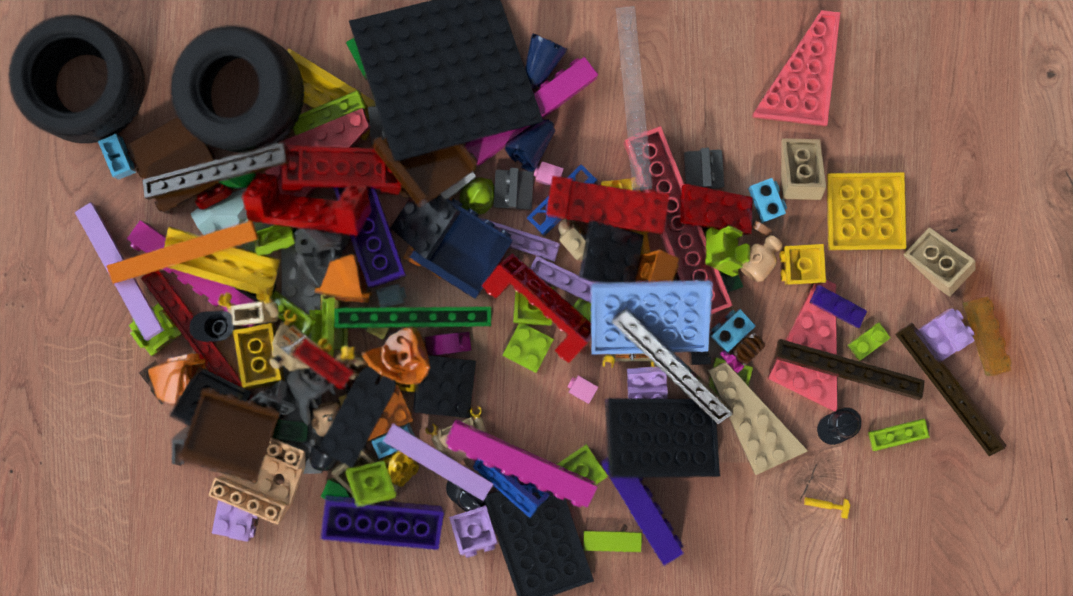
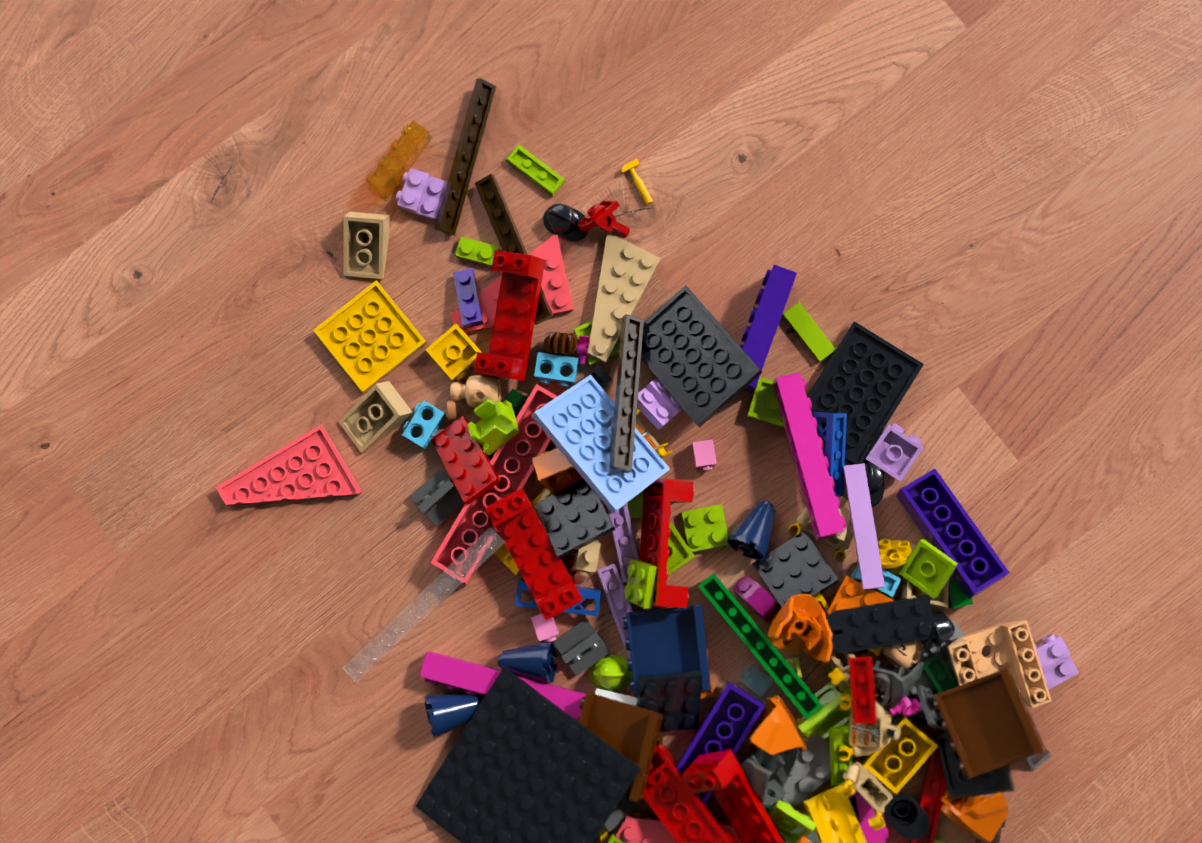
camera: 120 degrees left, 5 degrees down
(287, 385) = (906, 707): none -> dark pink piece
(497, 380) = (754, 531): none -> dark blue cone
(525, 266) = (640, 583): none -> lime plate
(797, 328) = (513, 315): none -> red plate
(822, 455) = (602, 217): none -> red piece

